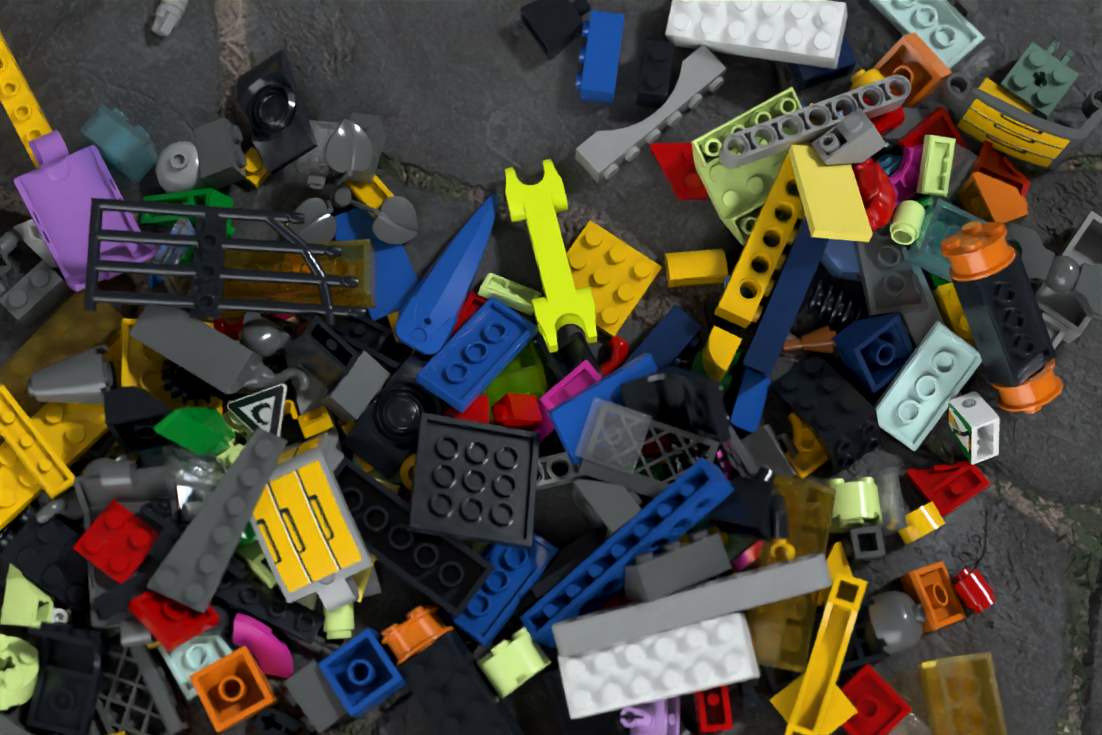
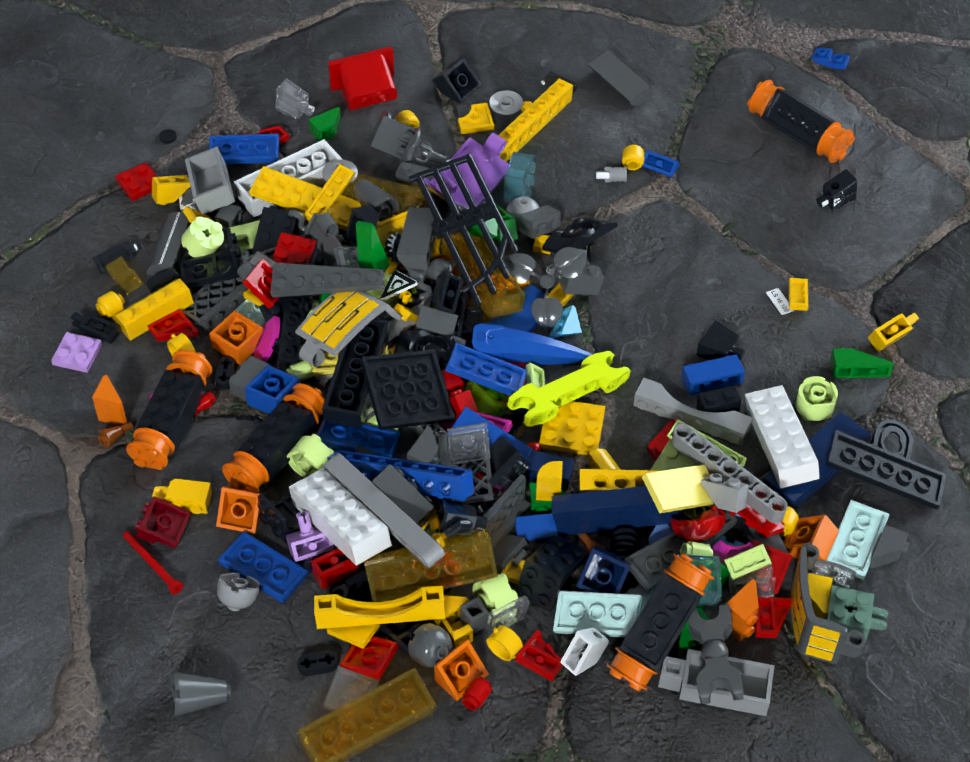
camera: 70 degrees right, 25 degrees down
(427, 204) = (567, 324): none -> medium azure slope
(876, 573) = (458, 632): none -> yellow panel

